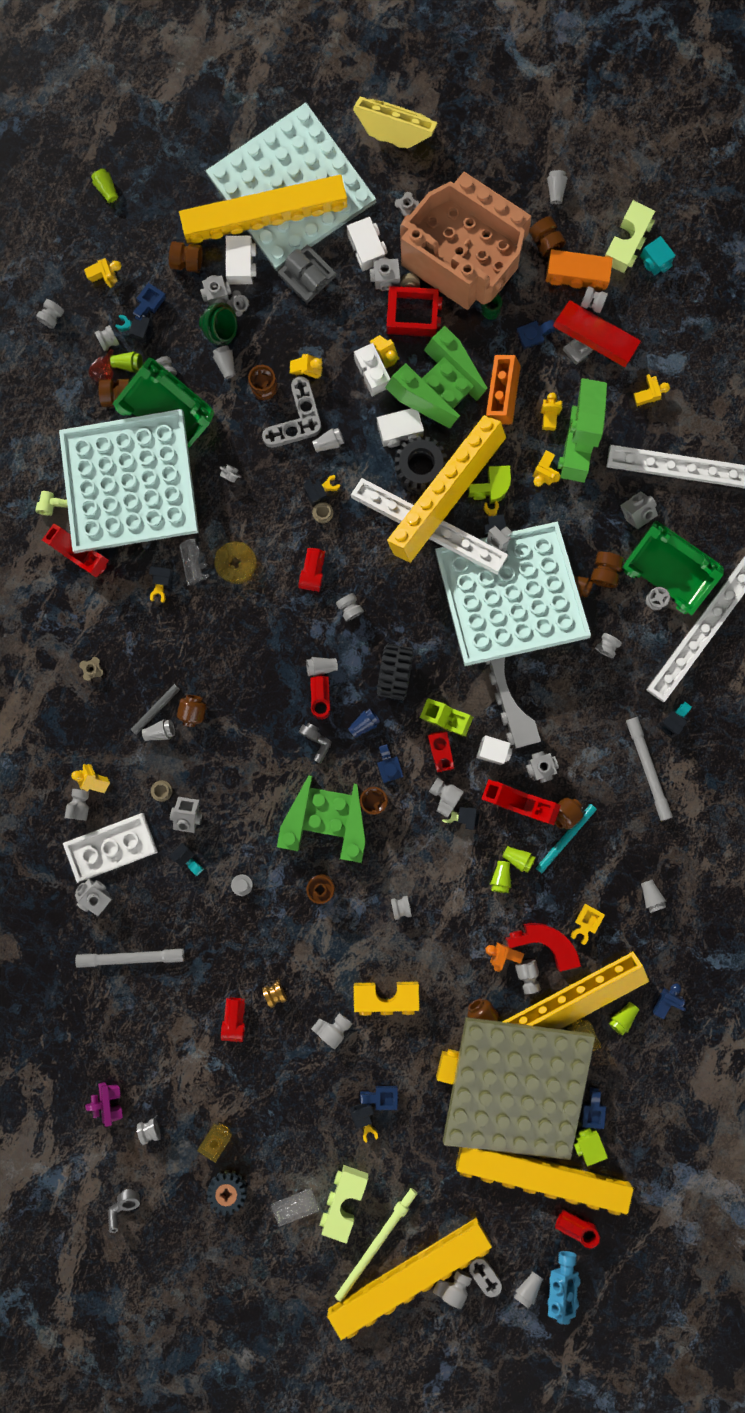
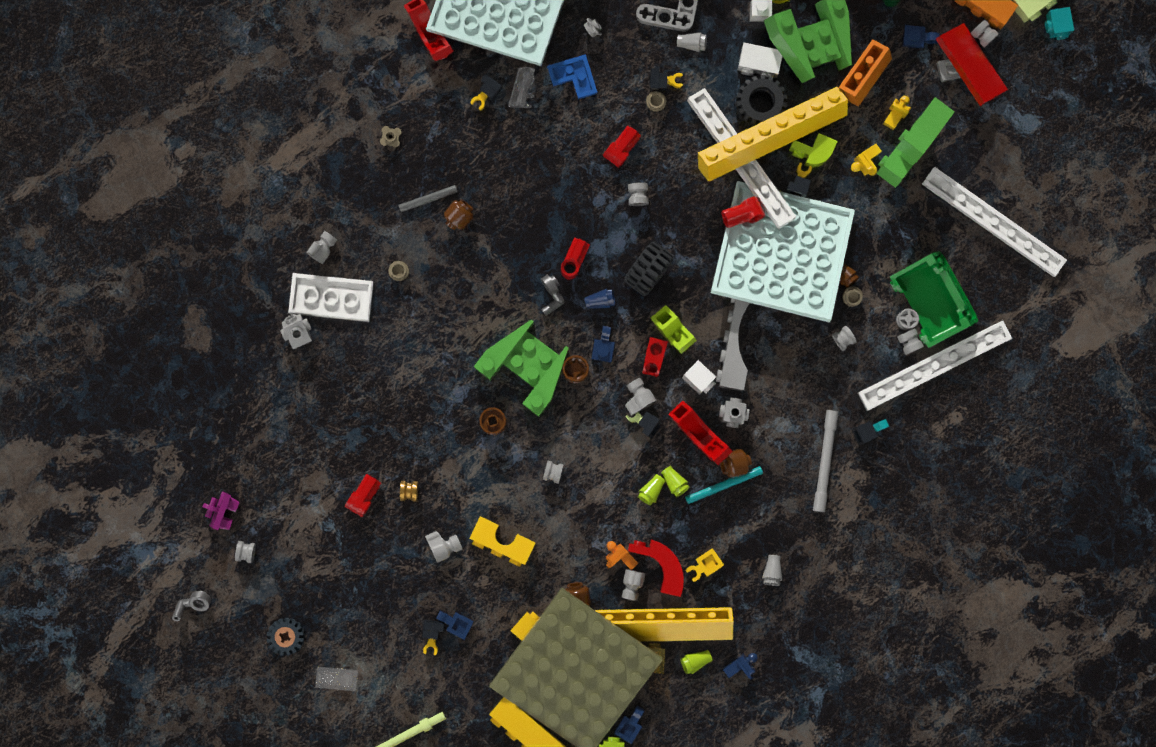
camera: 20 degrees right, 0 degrees up
(89, 780) = (342, 230): yellow piece -> none
(94, 960) = (271, 386): light grey piece -> none
(160, 731) = (423, 219): light grey cone -> none
(183, 855) = (390, 335): black piece -> none
(186, 815) = (410, 301): light grey brick -> none
(215, 1142) = (297, 588): clear yellow brick -> none
(234, 521) = (574, 70): none -> blue plate
(241, 885) = (427, 385): light grey plate -> none
(246, 567) = (567, 115): clear yellow plate -> none
(321, 666) = (588, 232): light grey cone -> none
(338, 1223) = (365, 707): yellowish green arch -> none
(460, 571) = (748, 211): none -> red piece
(498, 538) = (795, 199): light grey tile -> none
(596, 602) = (852, 296): none -> dark tan plate
(608, 566) = (878, 270): reddish brown wheel -> none
(639, 510) = (930, 235): light grey brick -> none
(653, 393) = (993, 140): yellow piece -> none
(671, 617) = (910, 341): none -> light grey wheel

